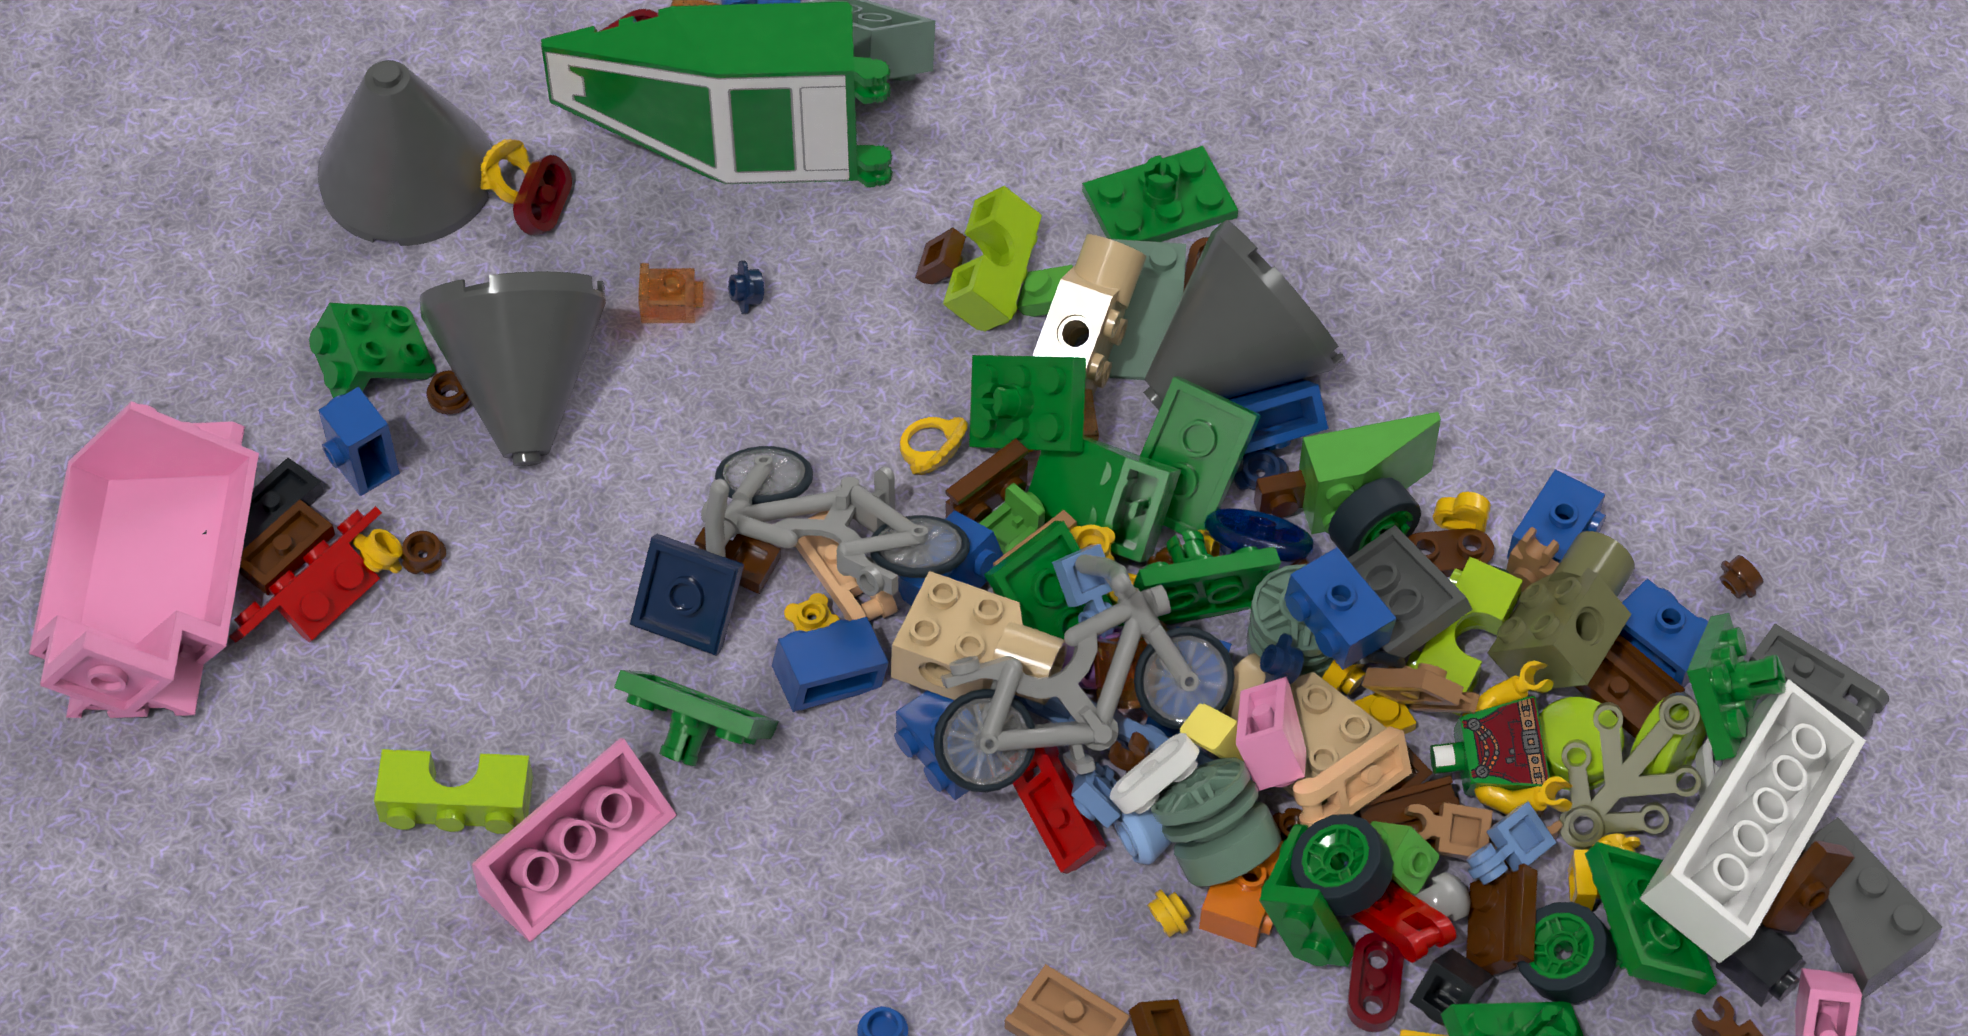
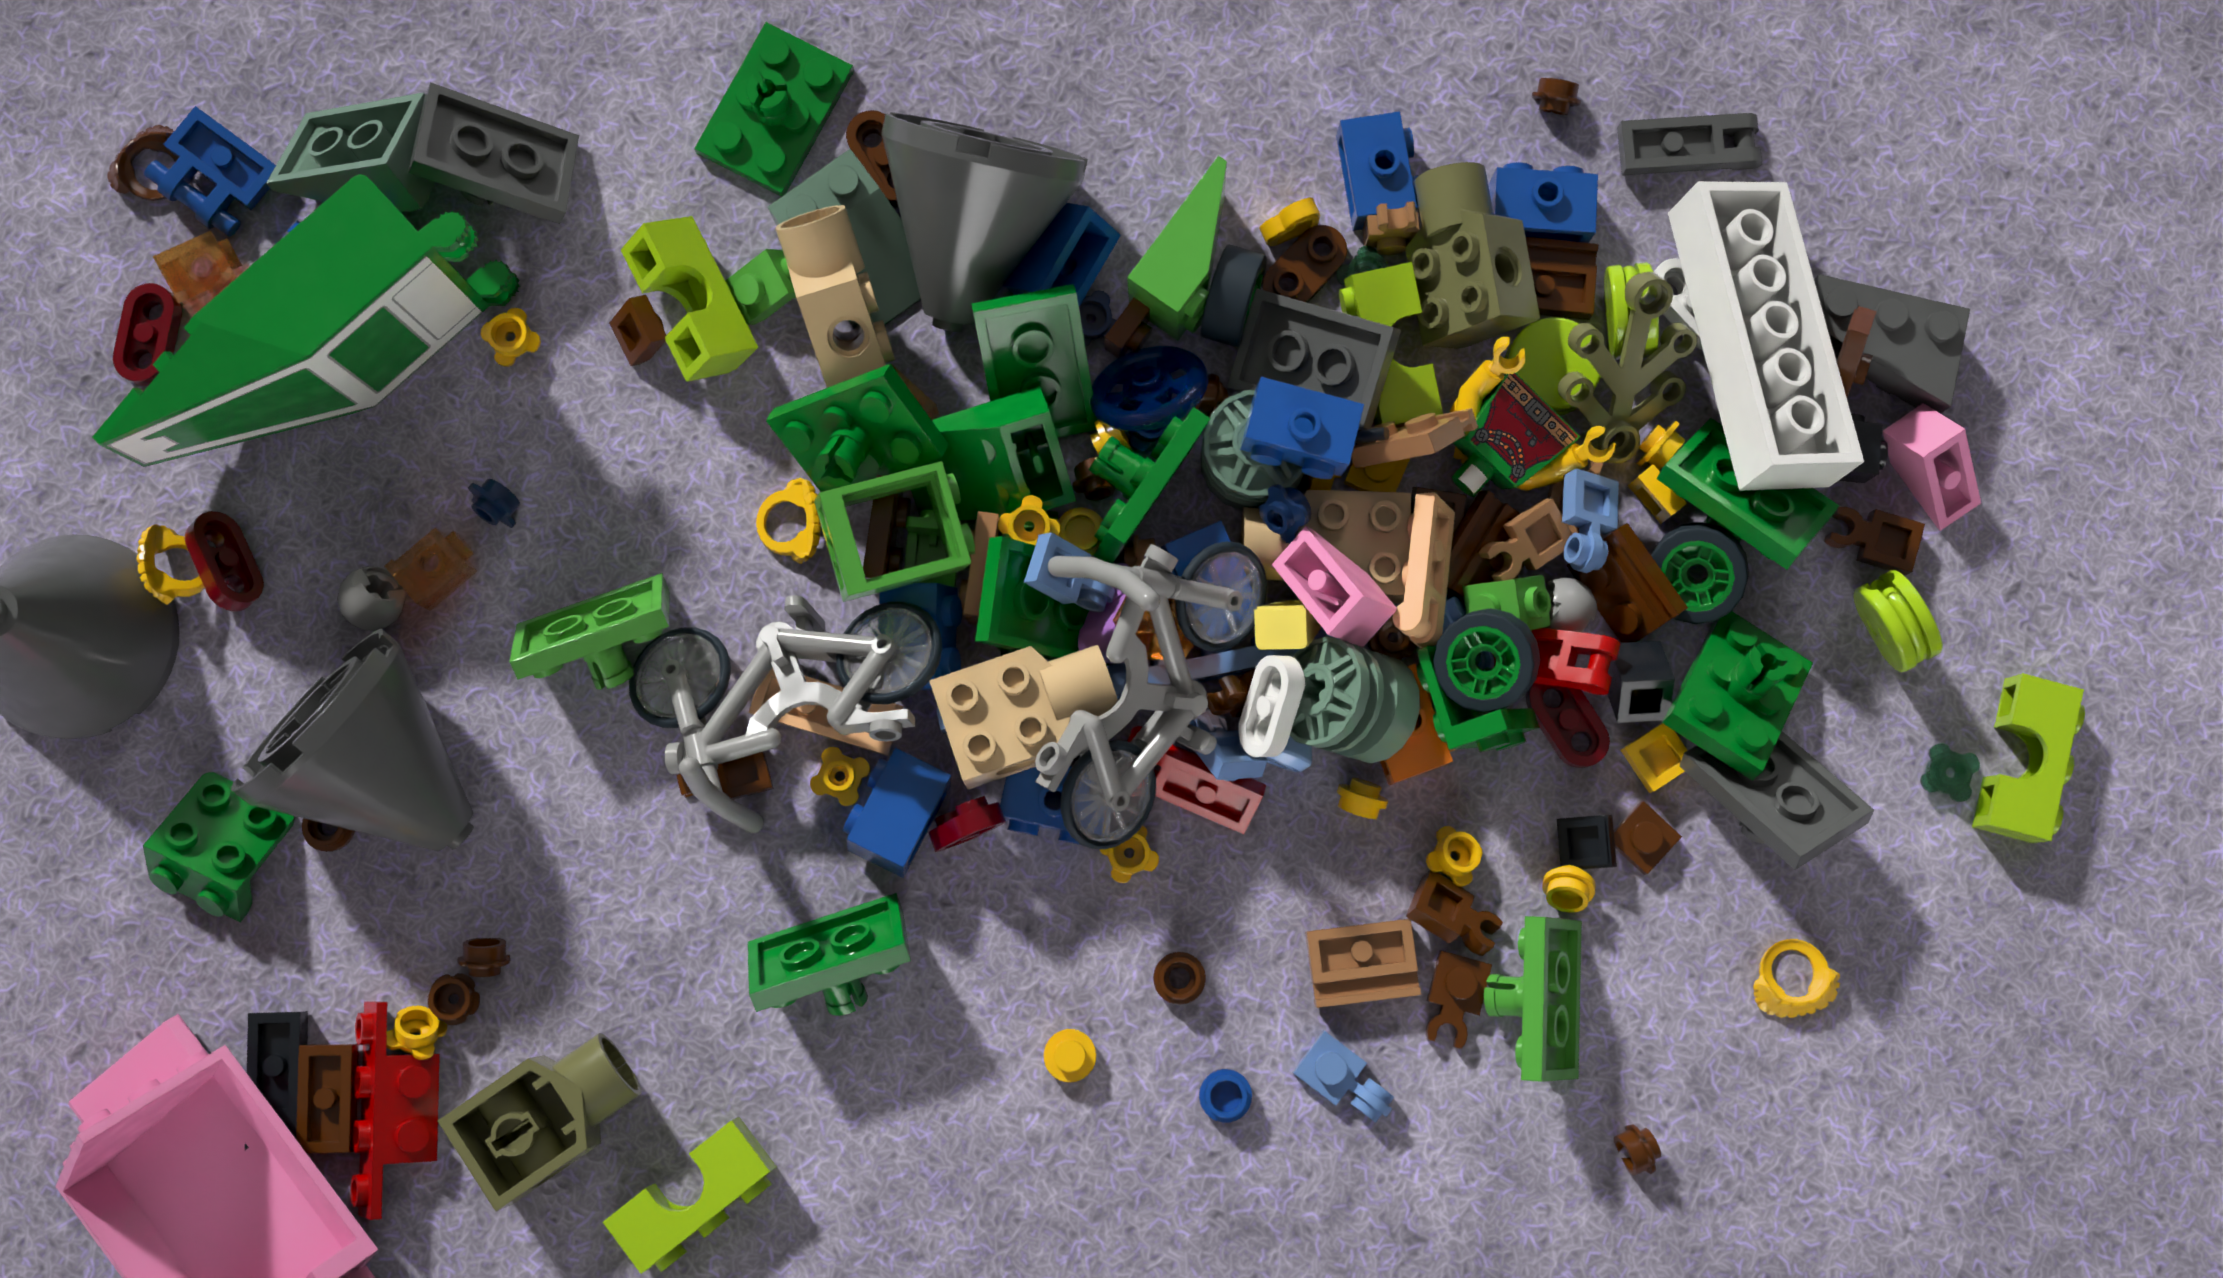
camera: 40 degrees left, 25 degrees up
(358, 441) = (299, 956): blue brick -> none
(404, 659) = (539, 1118): none -> olive brick
(468, 543) = (484, 956): none -> reddish brown plate
(572, 841) = (836, 1156): bright pink slope -> none
(619, 278) = (371, 598): none -> light grey piece
(686, 594) = (722, 853): dark blue plate -> none
(733, 405) = (593, 631): none -> bright green plate
(797, 915) = (1069, 1055): none -> yellow plate
(857, 194) = (496, 334): none -> yellow plate
(868, 702) = (966, 823): none -> dark red plate
(920, 915) = (1196, 981): none -> reddish brown plate
(945, 87) = (494, 154): none -> dark grey plate
(972, 809) = (1125, 867): none -> yellow plate
(1009, 437) = (841, 543): none -> bright green window
(1213, 997) = (1467, 850): none -> yellow plate
(1728, 685) = (1656, 223): green plate -> none

